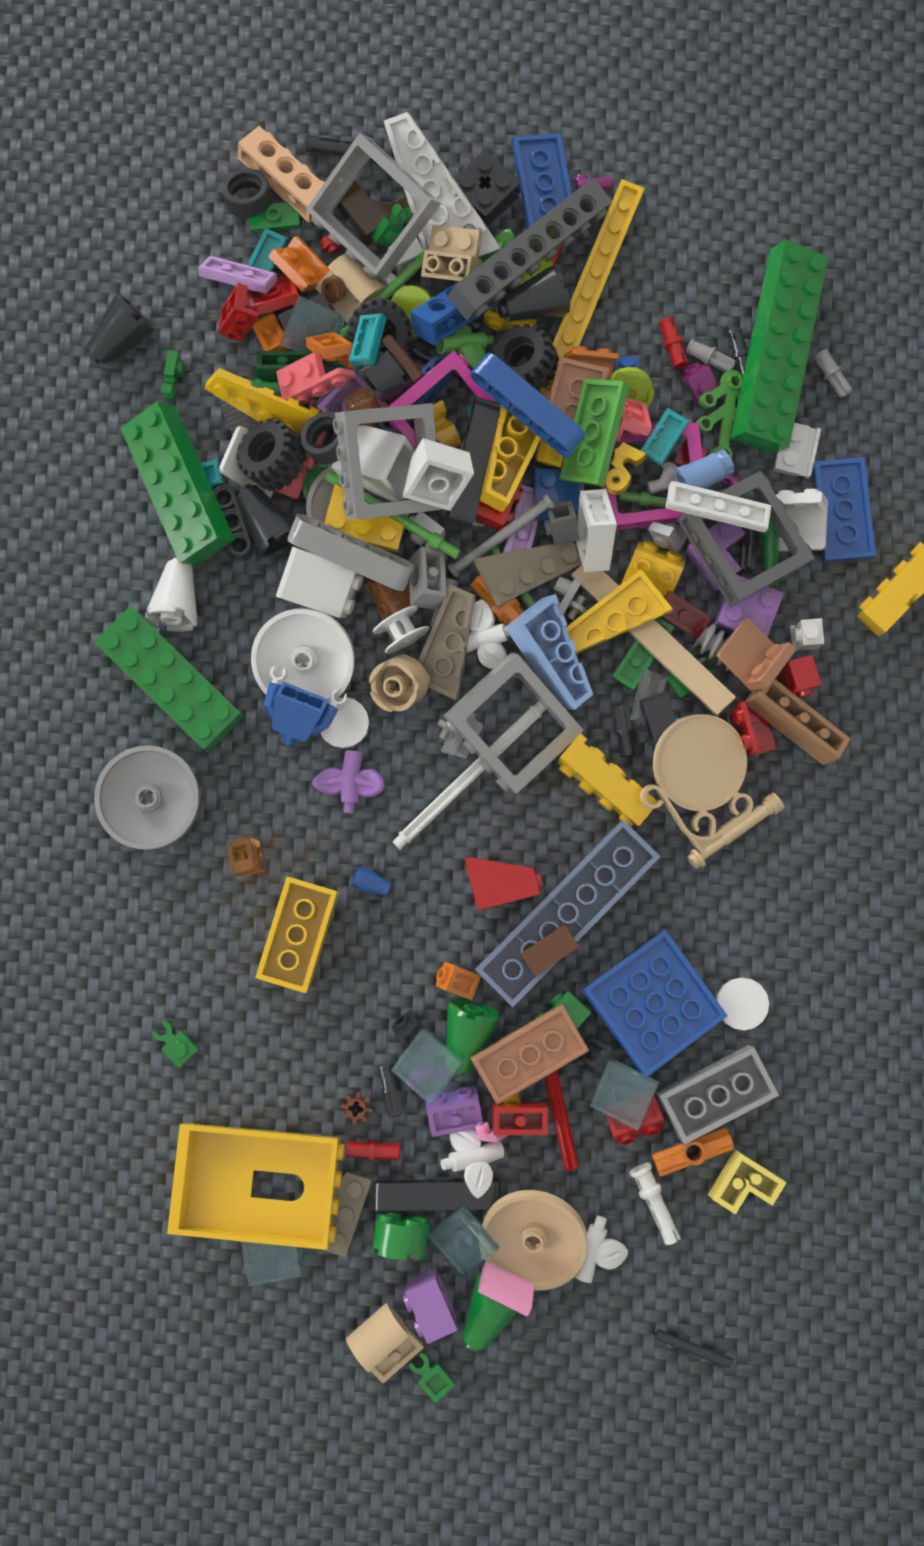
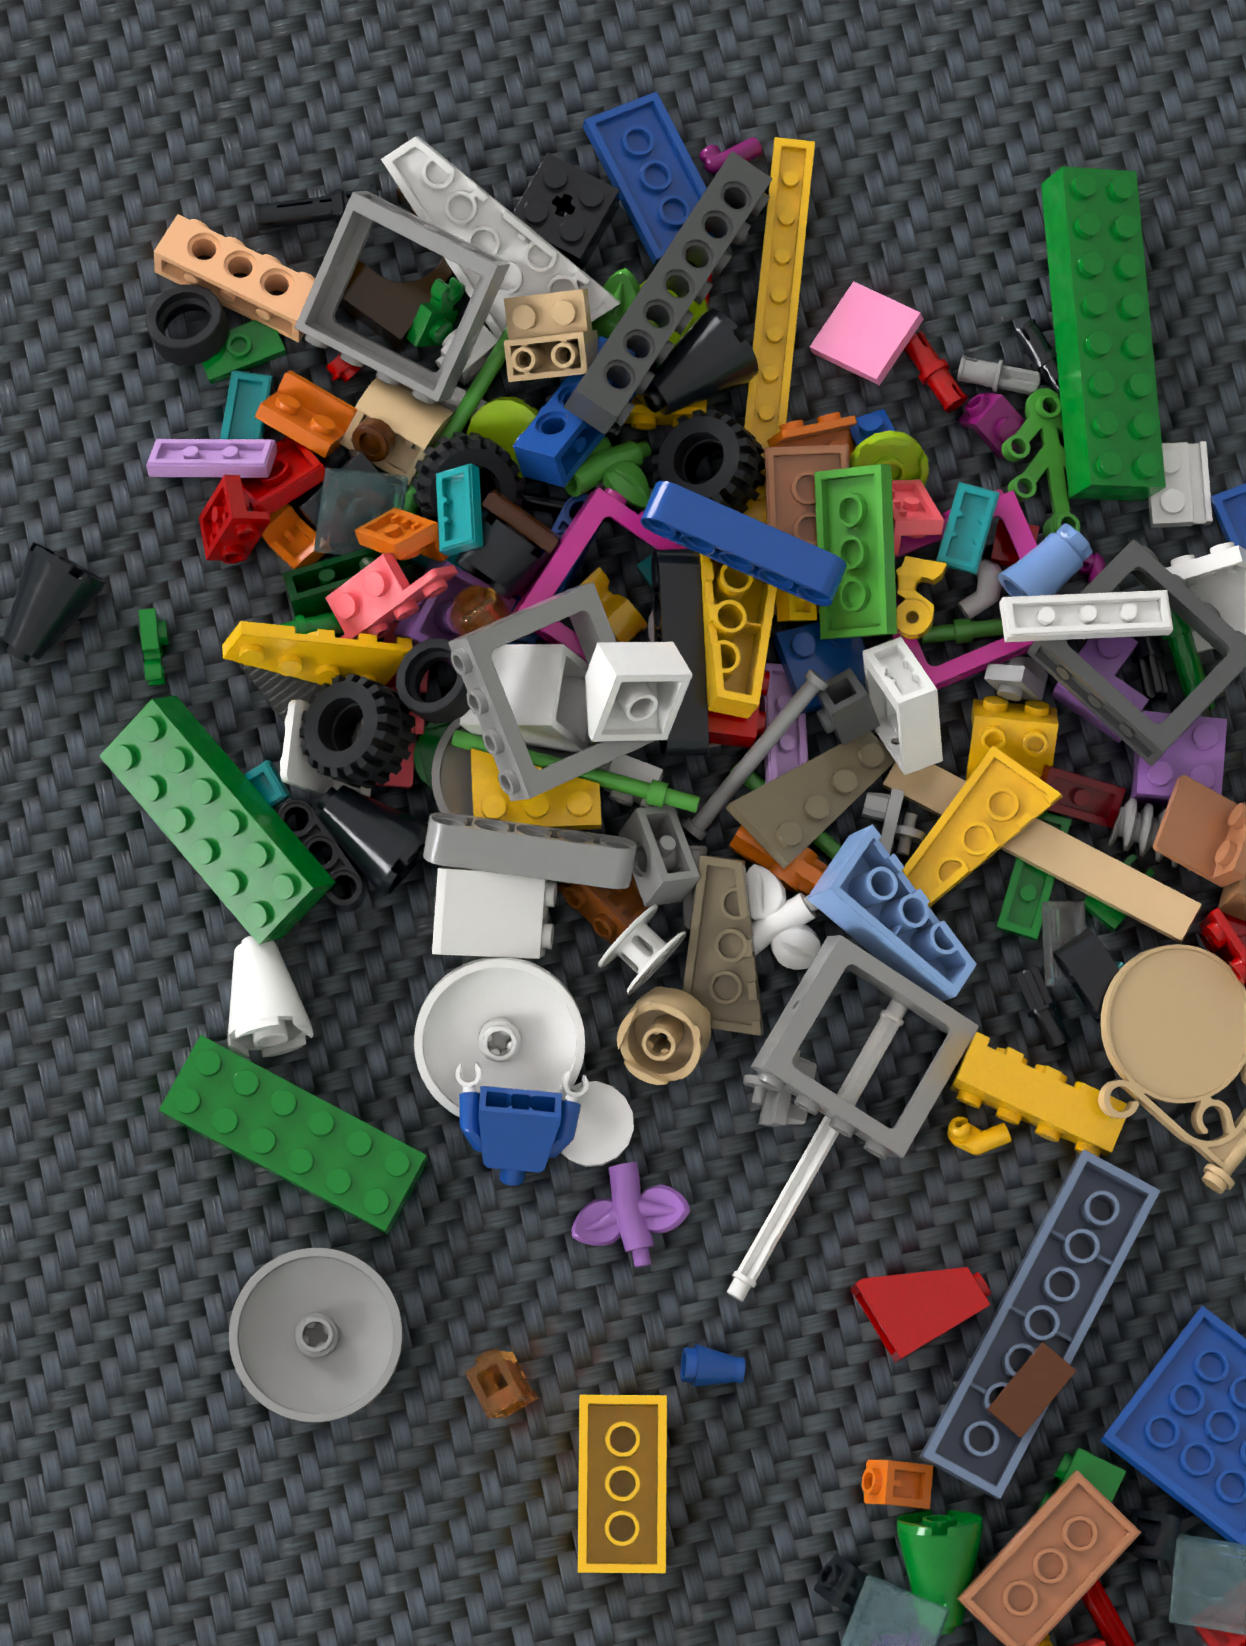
camera: 15 degrees left, 5 degrees down
(562, 796) = (974, 1139): none -> yellow arm
(640, 309) = (866, 333): none -> bright pink tile
(833, 373) = (1198, 348): light grey axle -> none

